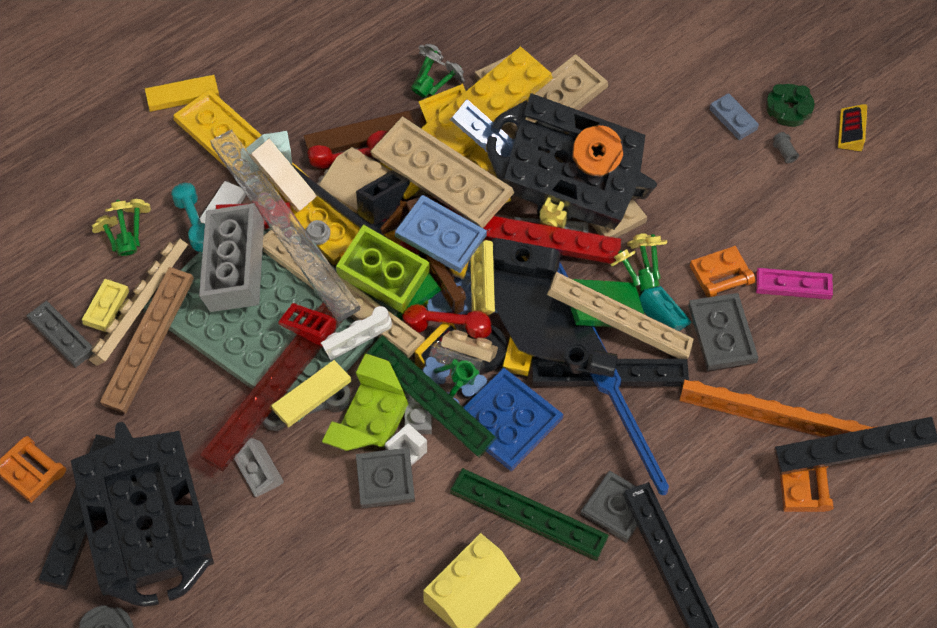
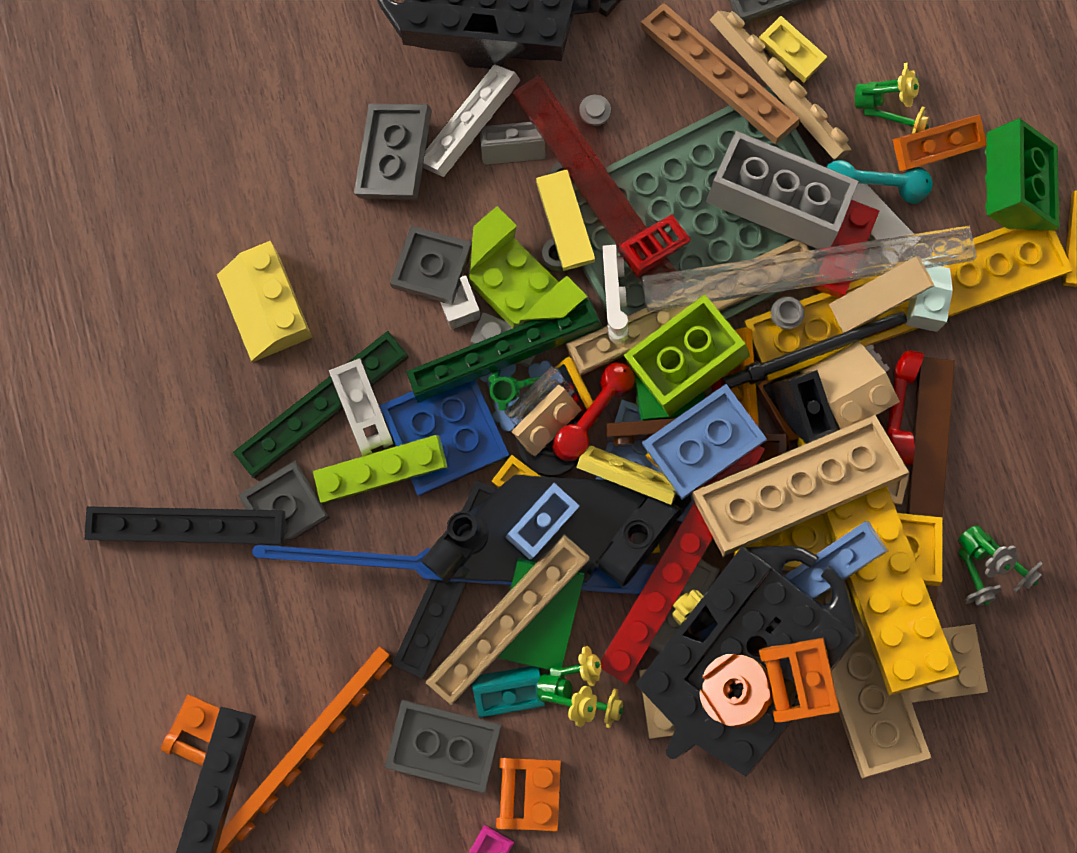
camera: 120 degrees right, 20 degrees up
(147, 188) = (939, 142): none -> orange plate
(155, 134) = (1022, 178): none -> green slope
(208, 418) = (595, 110): none -> light grey plate
(254, 500) = (469, 120): none -> white plate
(305, 542) = (393, 151): none -> dark grey plate
(518, 478) = (360, 405): none -> white plate
(545, 313) = (542, 521): none -> light blue brick
(558, 445) = (380, 469): none -> lime plate
(570, 105) = (811, 677): none -> orange plate

